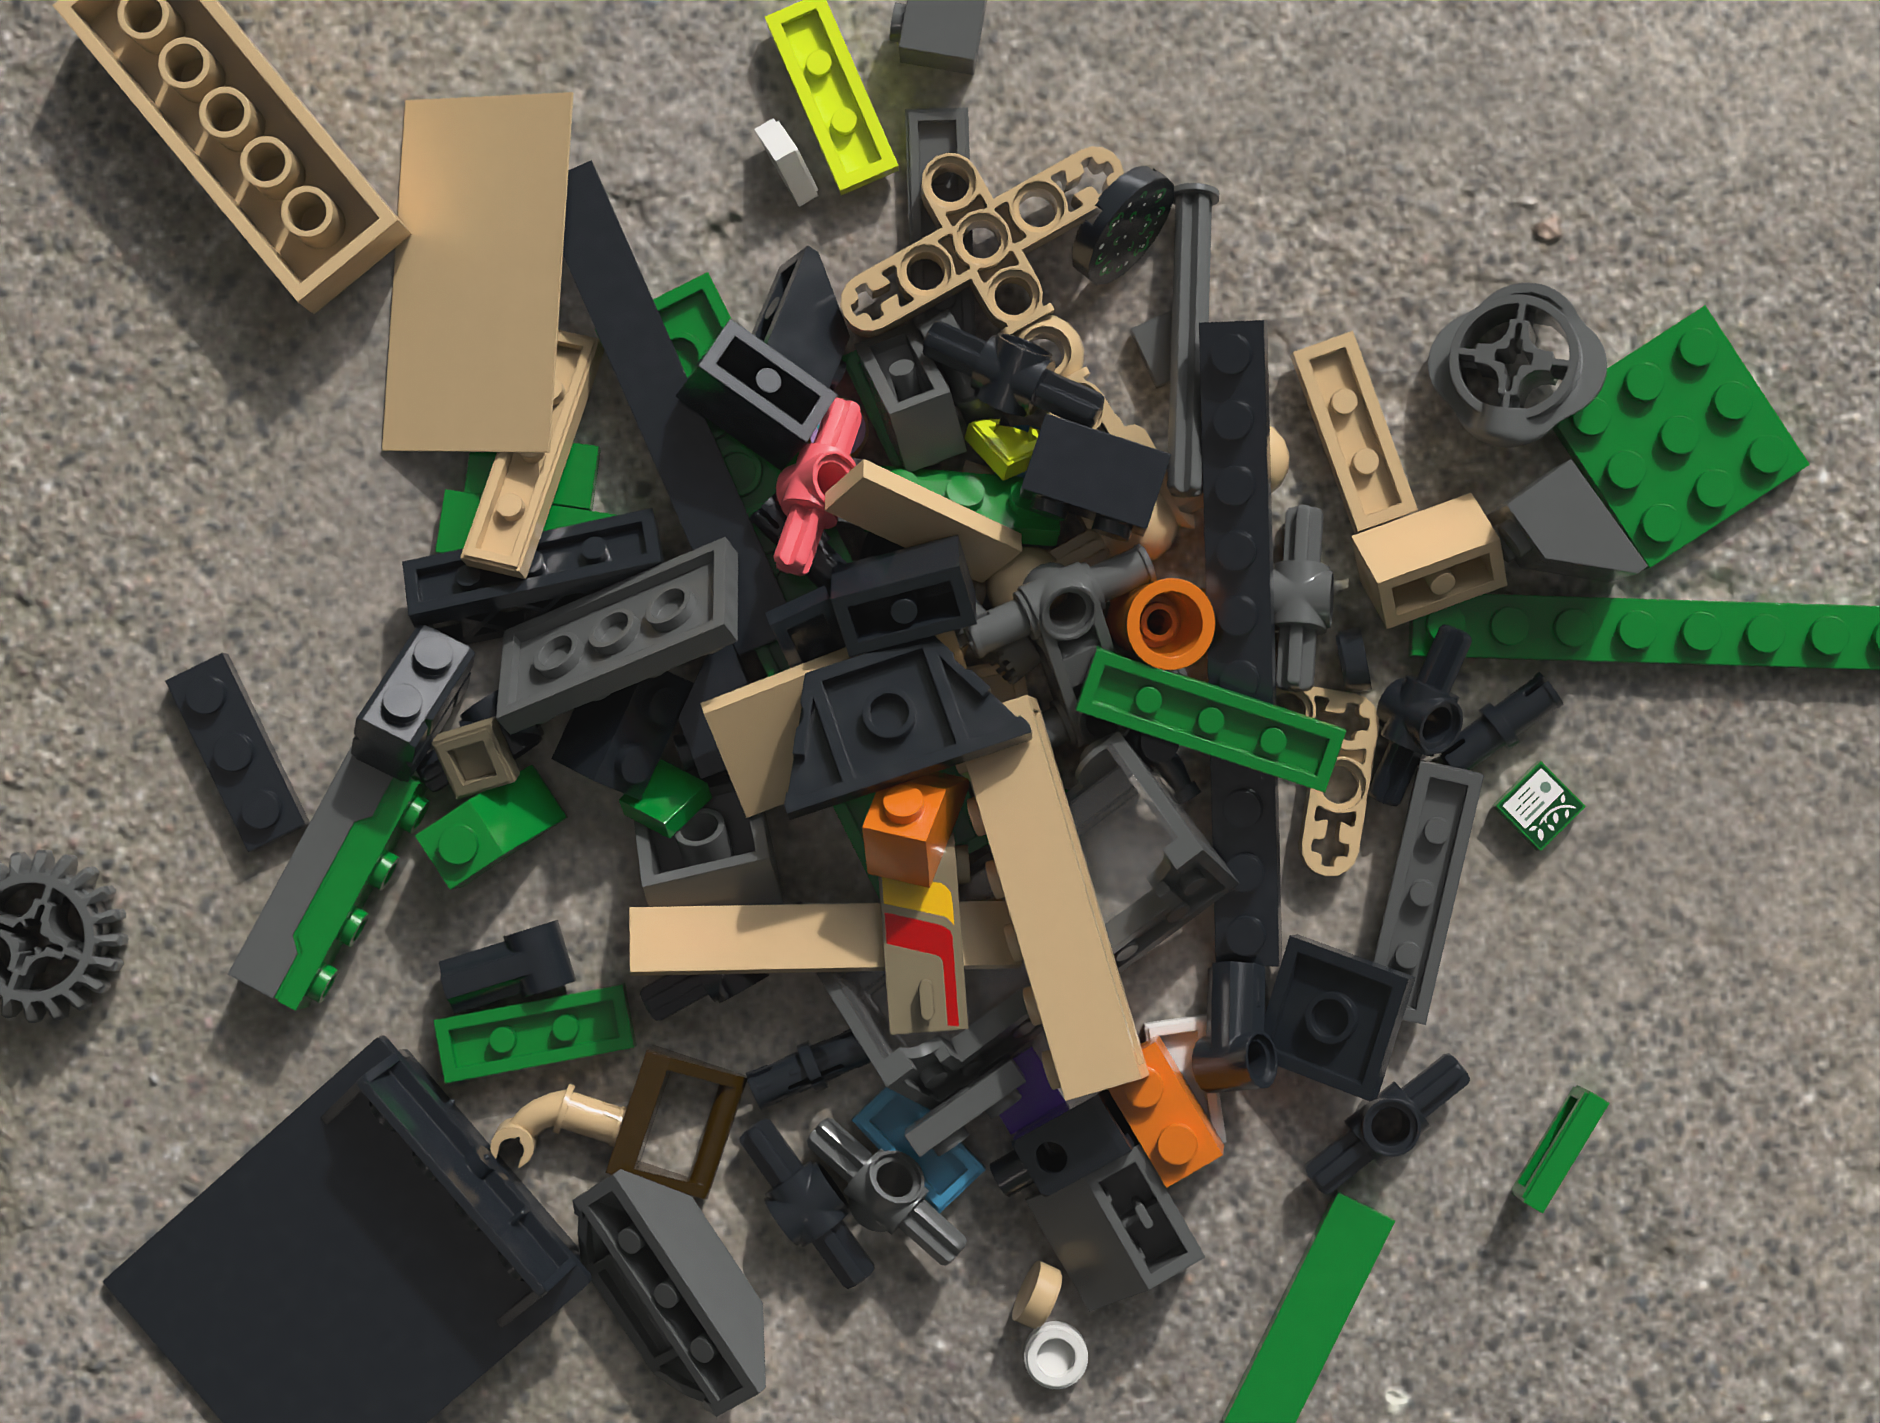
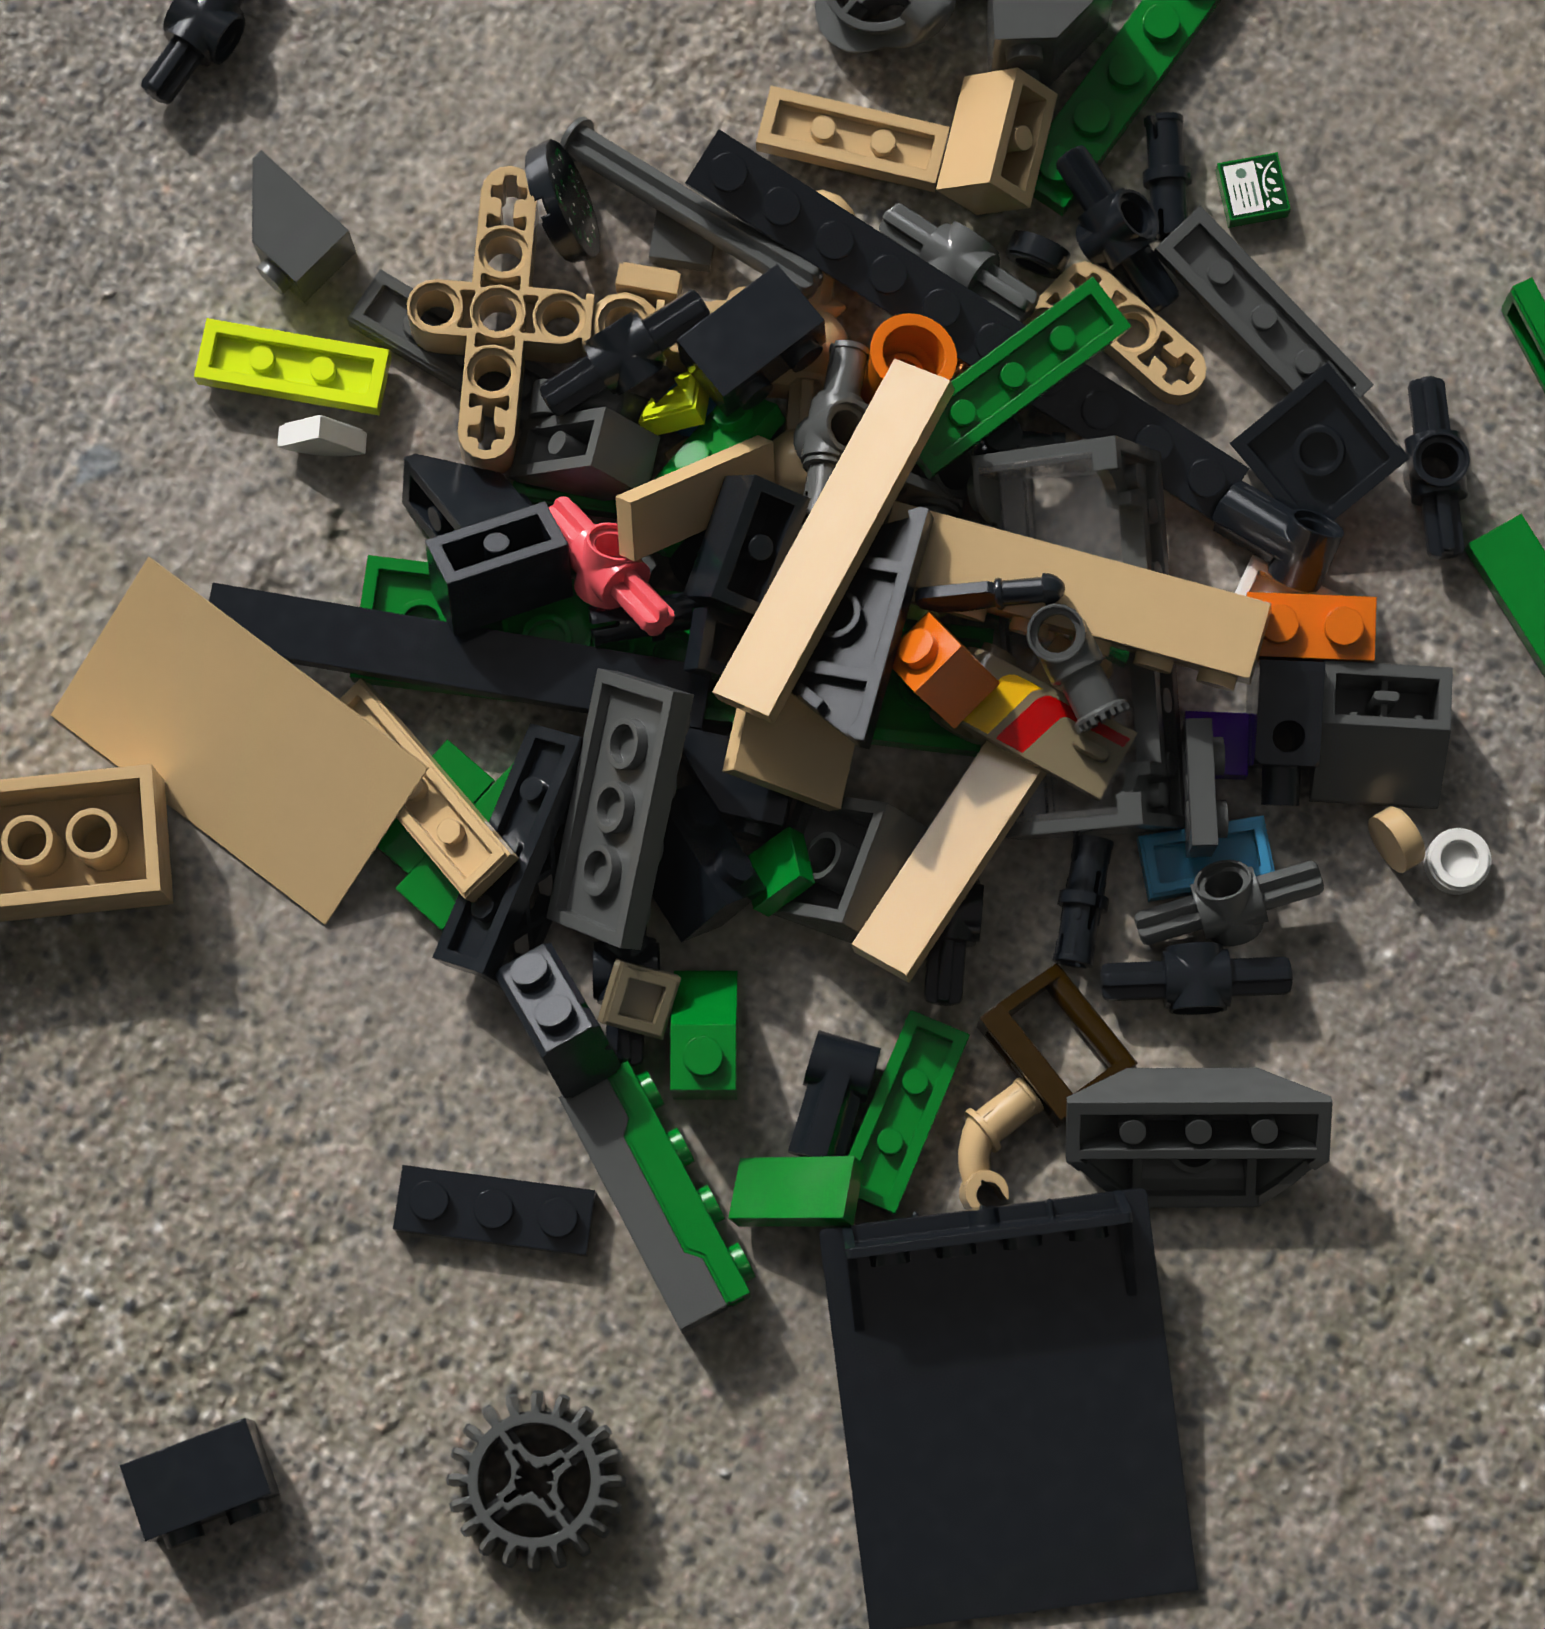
camera: 60 degrees left, 10 degrees down
(406, 992) = (796, 1191): none -> green tile
(952, 669) = (834, 541): none -> tan tile
(979, 948) = (1077, 670): none -> dark grey connector
(1001, 841) = (988, 594): none -> black piece
(1101, 348) = (649, 282): none -> tan tile

